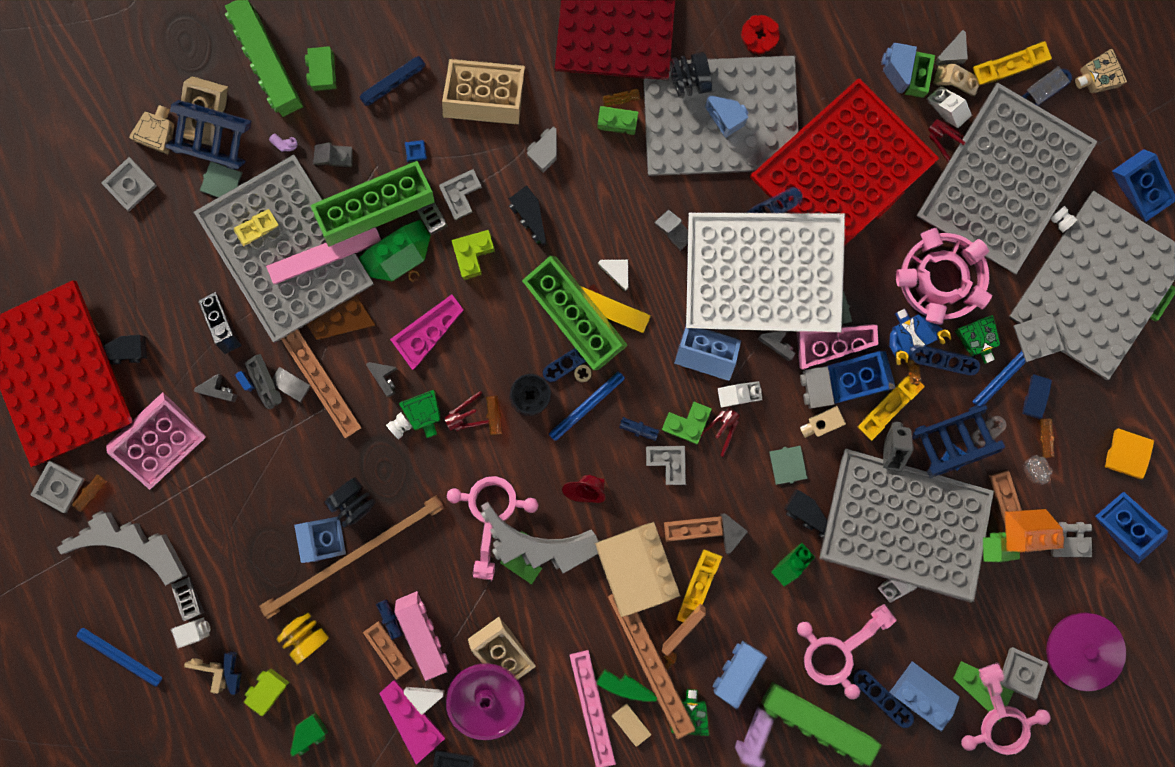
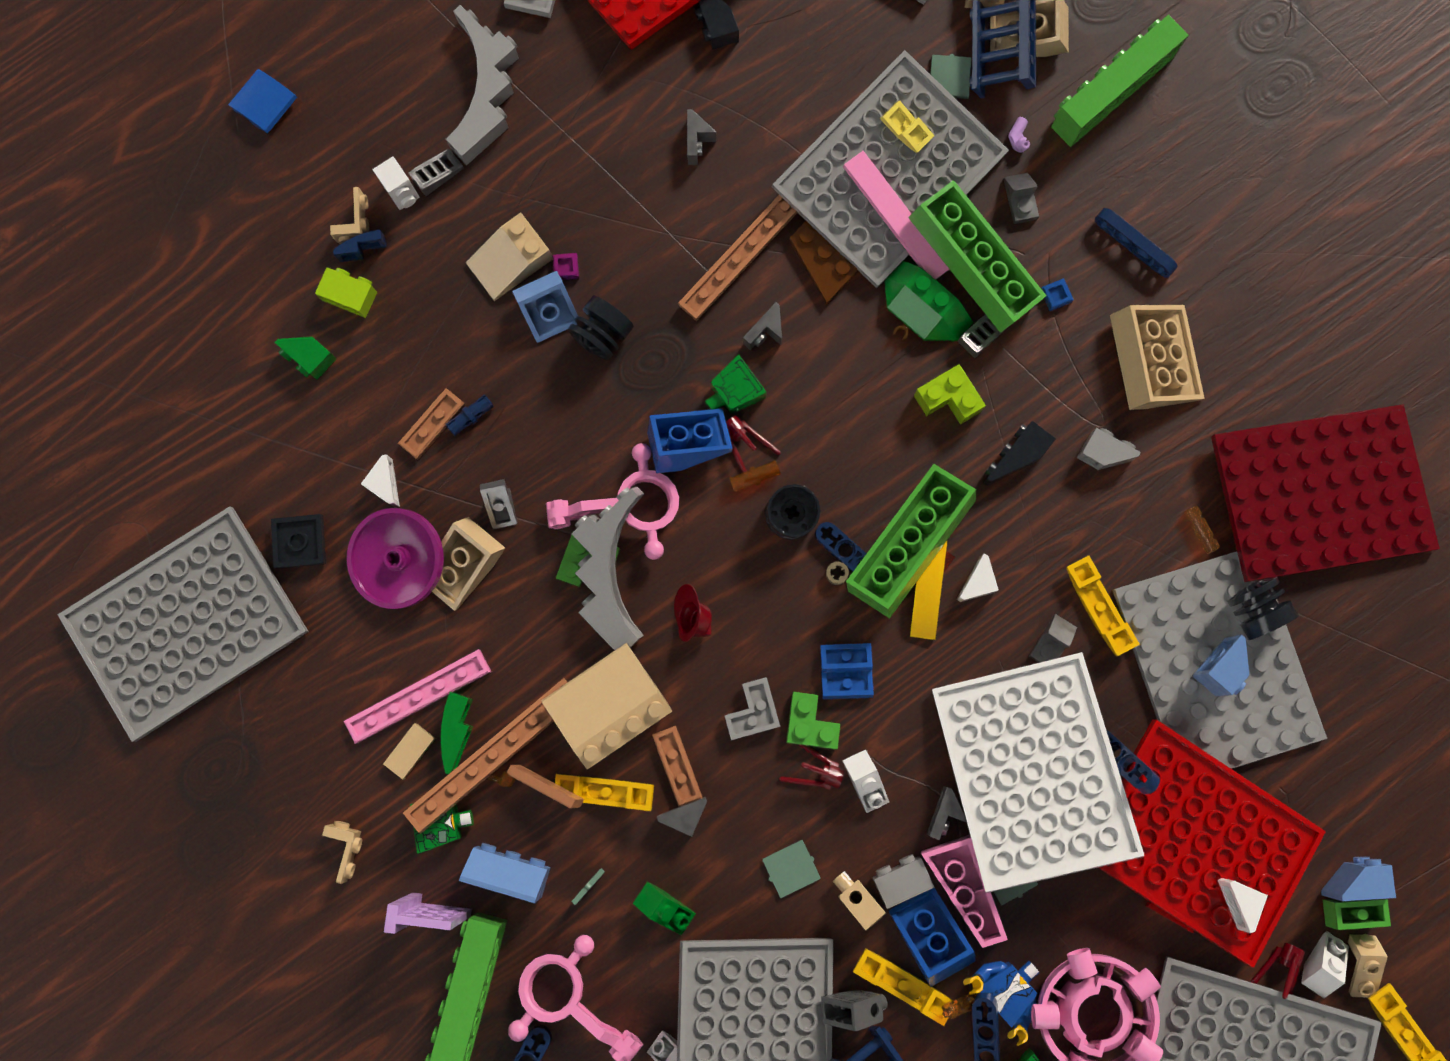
camera: 80 degrees right, 5 degrees down
(89, 493) = (535, 26): clear orange pin -> none
(90, 723) = (262, 100): none -> blue slope
(119, 657) = (348, 113): blue axle -> none
(155, 441) = (615, 84): bright pink slope -> none
(219, 323) = (776, 120): black slope -> none
(245, 381) = (716, 167): blue tile -> none
(263, 382) = (720, 188): dark grey hinge -> none
(272, 559) = (509, 257): none -> tan slope
(290, 384) = (726, 221): flat silver slope -> none
(291, 516) = (566, 265): none -> magenta tile
(302, 638) = (420, 316): yellow wheel -> none
(321, 68) = (1124, 154): bright green brick -> none
(399, 425) = (710, 363): white wheel -> none
(416, 729) = (341, 484): dark pink wing -> none
(420, 635) = (458, 457): bright pink wedge -> none
(425, 332) = (835, 365): dark pink wing -> none
(431, 507) = (621, 430): medium nougat piece -> none
(453, 458) = (687, 438): none -> blue slope
(455, 191) = (1024, 355): light grey plate -> none
(464, 613) = (498, 503): none -> flat silver slope
(586, 406) = (797, 589): blue axle -> none
(617, 120) = (1172, 531): bright green brick -> none
(639, 429) = (786, 662): dark blue pin -> none
(656, 386) = (846, 671): none -> blue slope
(658, 188) = (1100, 606): none -> yellow slope
(708, 352) = (908, 725): medium blue slope -> none
(763, 615) = (588, 886): none -> sand green piece
(769, 28) = (1355, 684): red plate -> none
(807, 510) = (738, 910): black slope -> none
(894, 152) = (1243, 904): none -> white slope
(955, 53) = (1401, 953): light grey slope -> none

